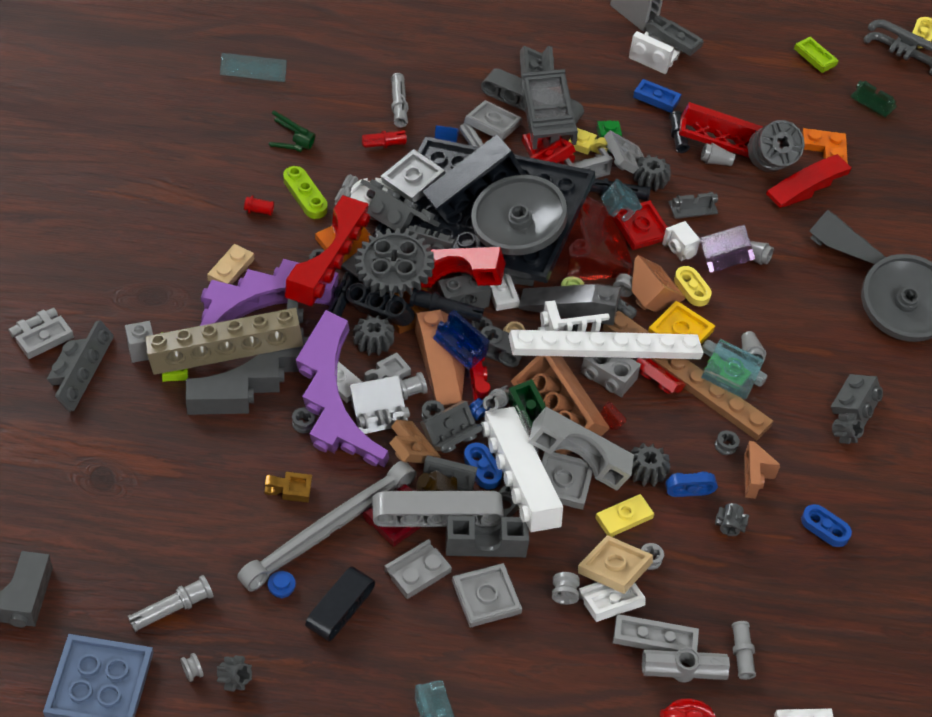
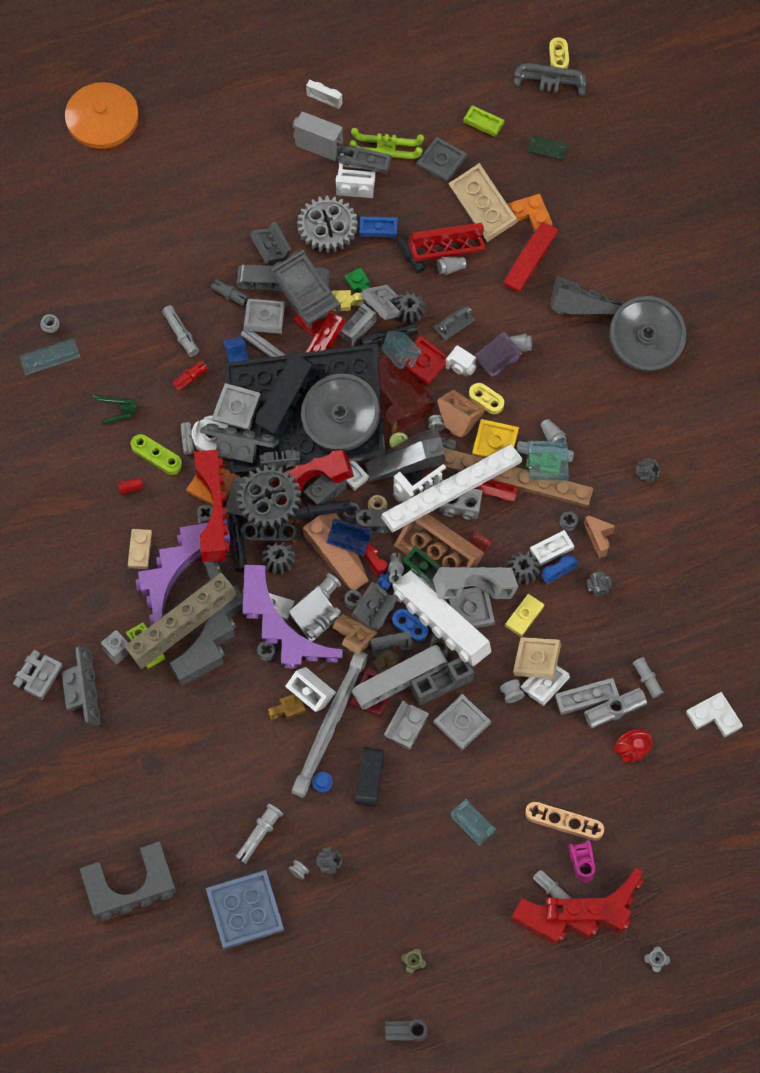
camera: 20 degrees left, 15 degrees up
(273, 43) = (49, 319): none -> light grey plate
(327, 476) = (310, 689): none -> white brick
(389, 367) = (305, 580): light grey plate -> none
(469, 88) = (229, 292): none -> dark grey pin
(589, 67) = (343, 220): none -> light grey gear
(656, 551) = (557, 631): light grey bush -> none
(693, 459) = (552, 548): none -> white plate
(708, 35) = (388, 144): none -> lime piece
(754, 70) = (441, 160): none -> dark grey tile
(765, 149) = (485, 242): dark grey wheel -> none
(780, 103) = (483, 202): none -> tan tile
(826, 525) = (664, 554): blue plate -> none
(858, 396) = (644, 438): dark grey bracket -> none

